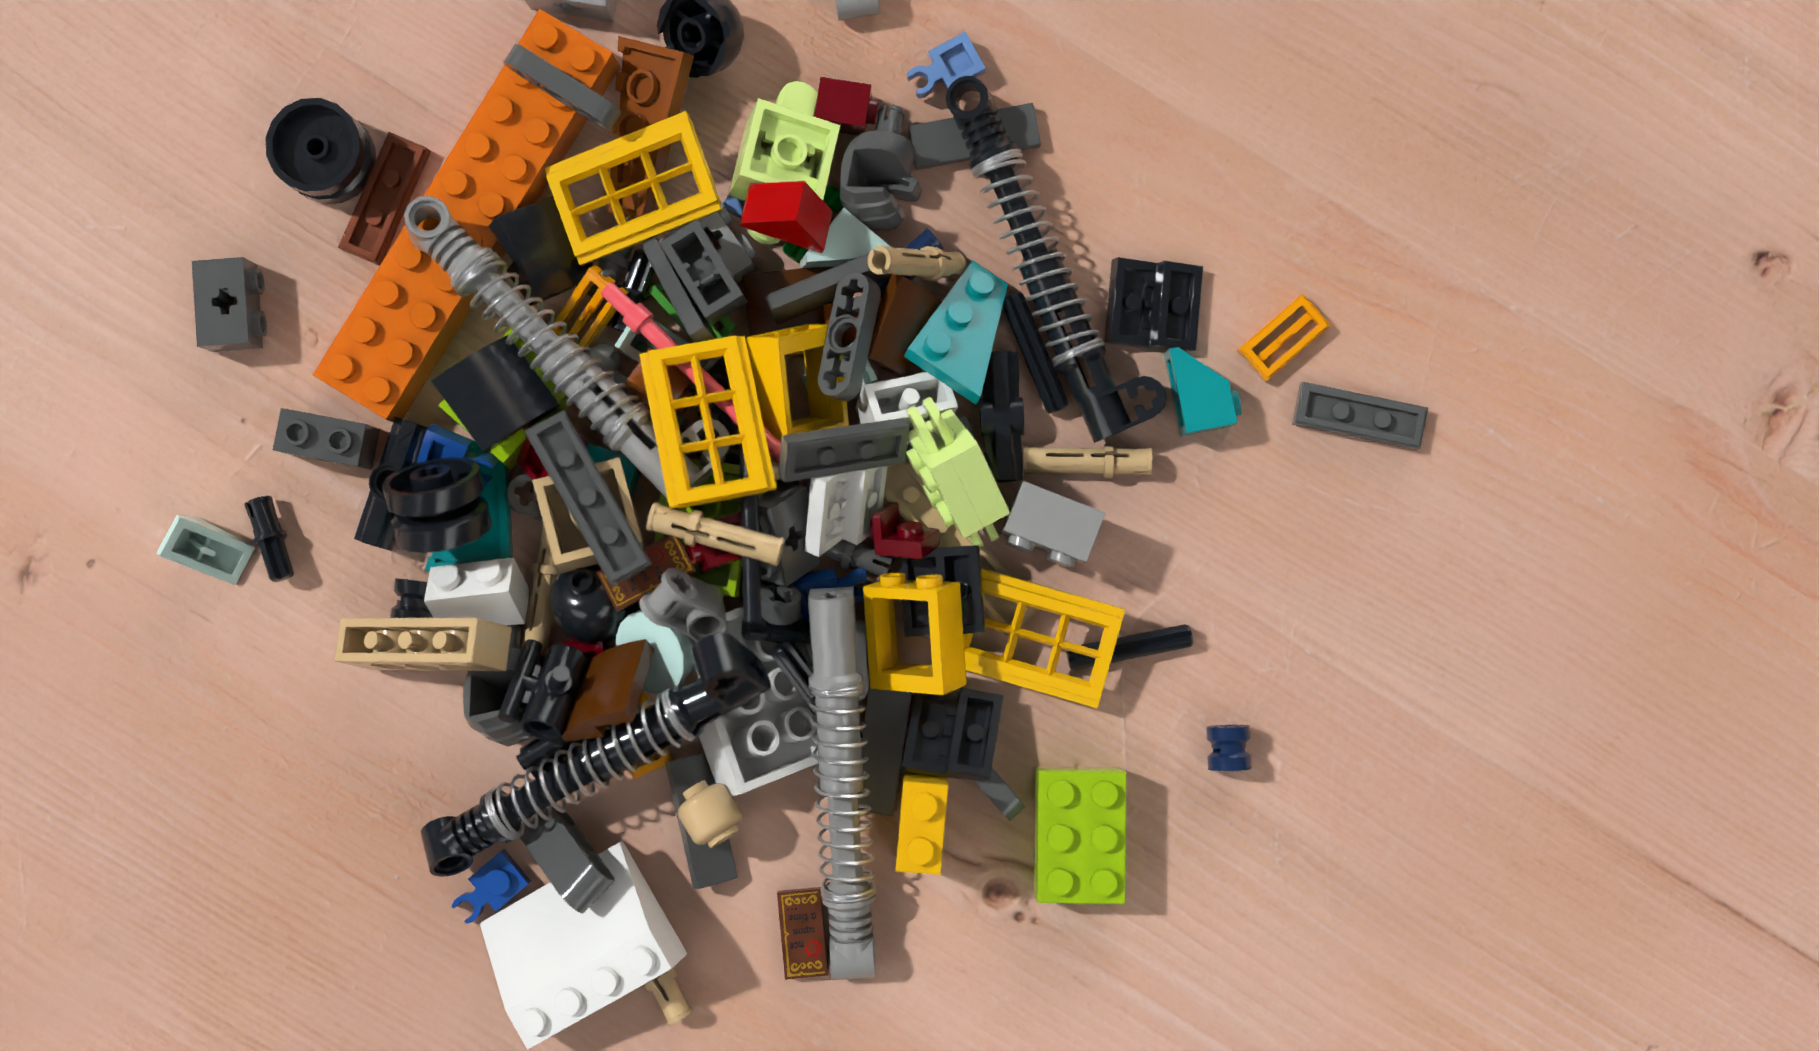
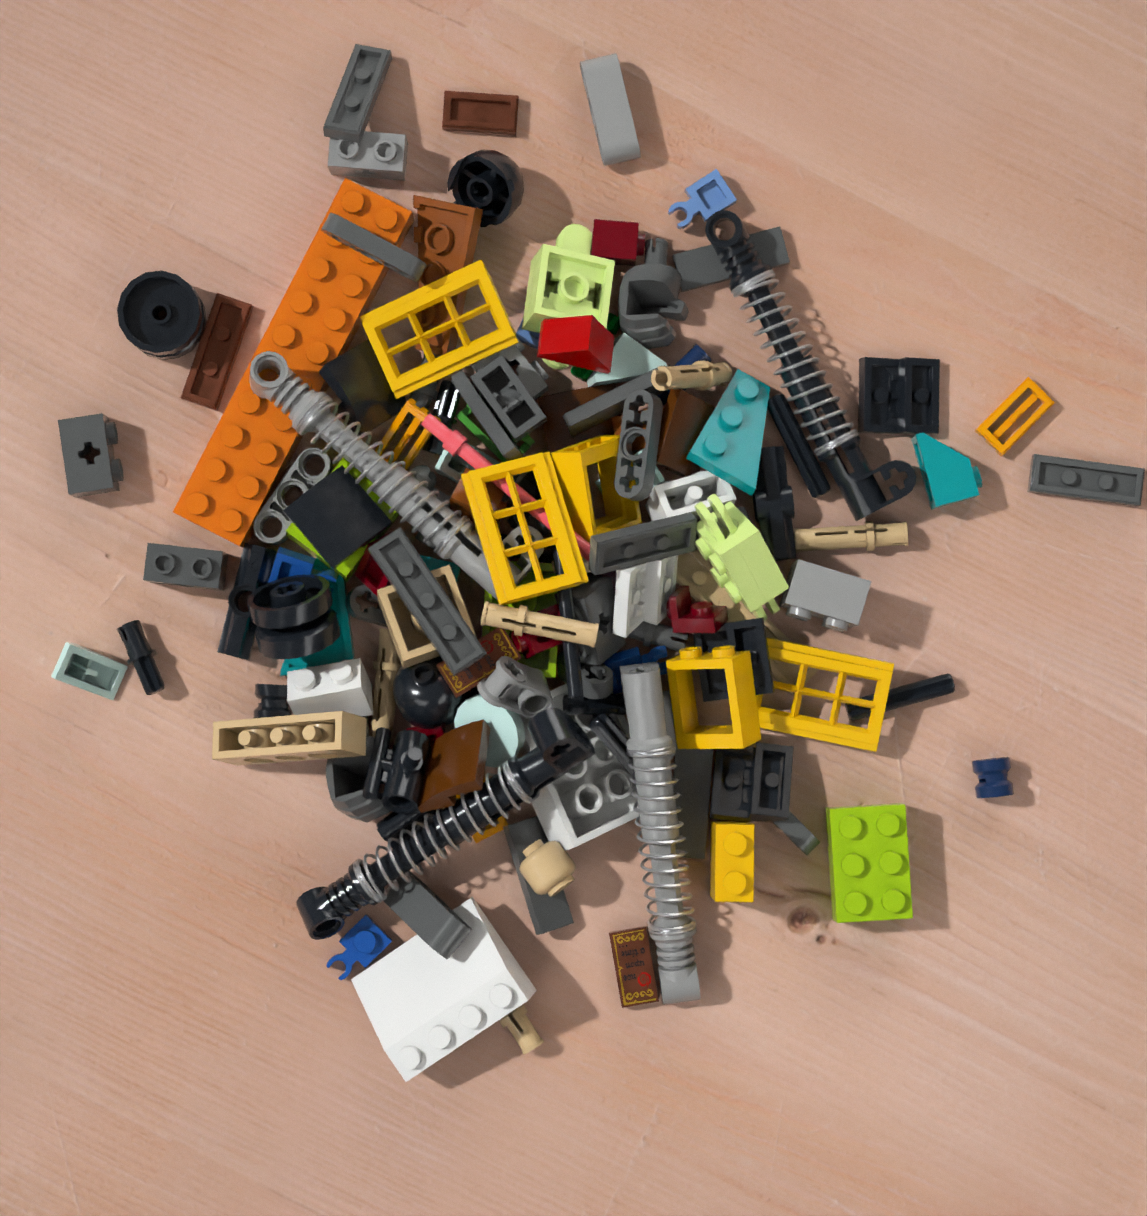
camera: 10 degrees left, 0 degrees up
(459, 345) = (295, 477): none -> light grey beam

